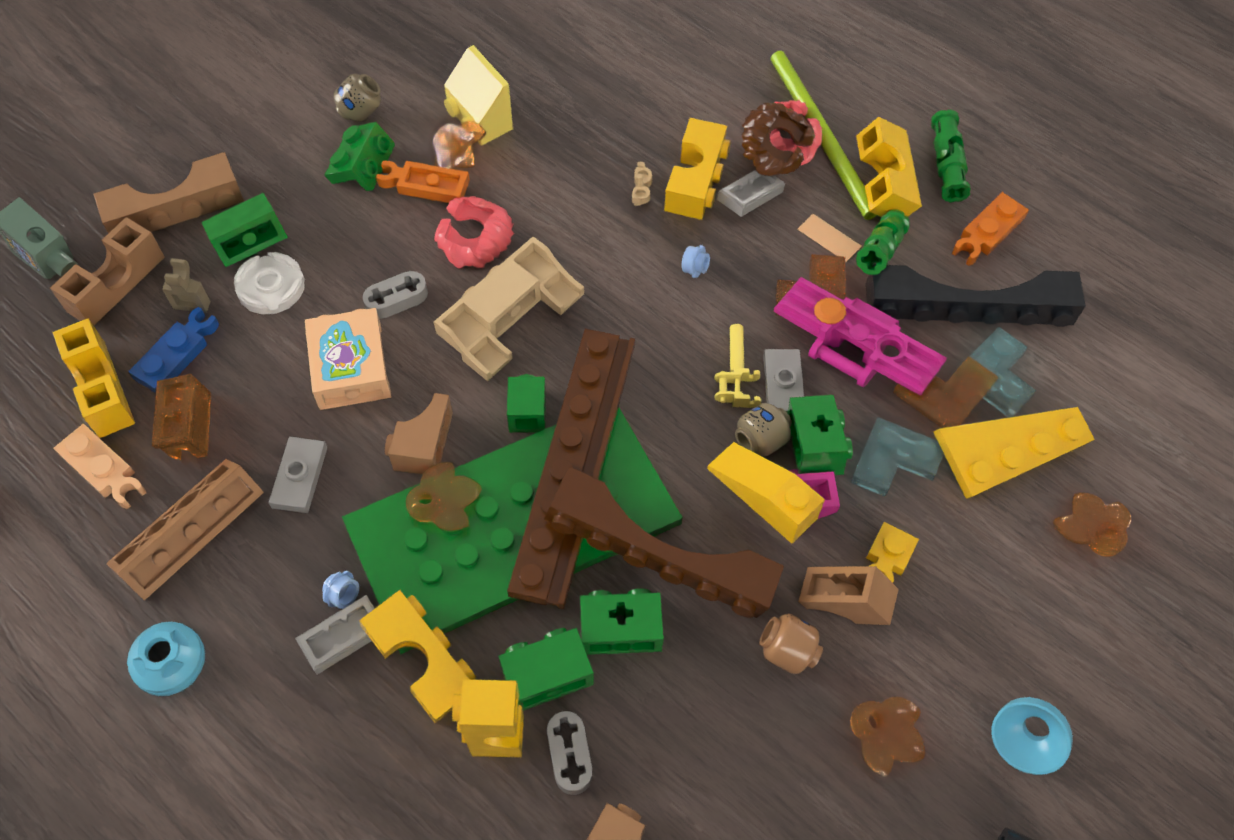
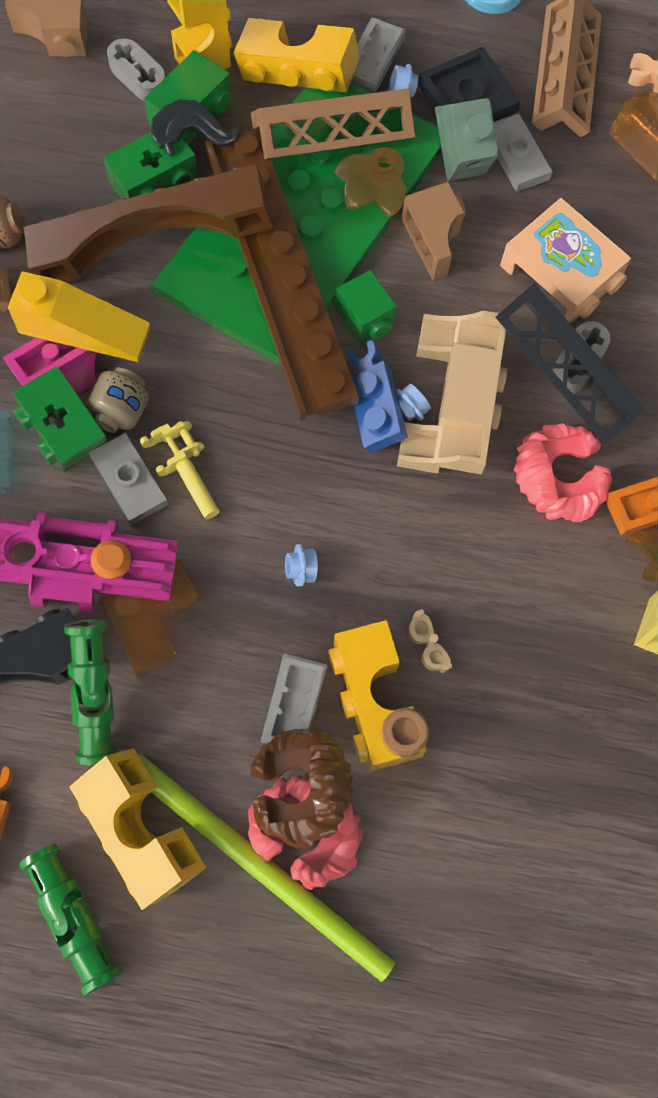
camera: 145 degrees right, 10 degrees up
(291, 547) = (468, 79): none -> black plate
(340, 479) = (467, 138): none -> sand green torso
(408, 263) = (580, 352): none -> black fence
(436, 563) = (334, 108): none -> medium nougat fence
(543, 323) = (412, 403): none -> light blue plate
(567, 334) = (378, 403): none -> blue plate
(568, 624) = (184, 115): none -> black piece
(698, 126) = (405, 732): none -> medium nougat tile
(829, 237) = (171, 705): light nougat sticker -> none

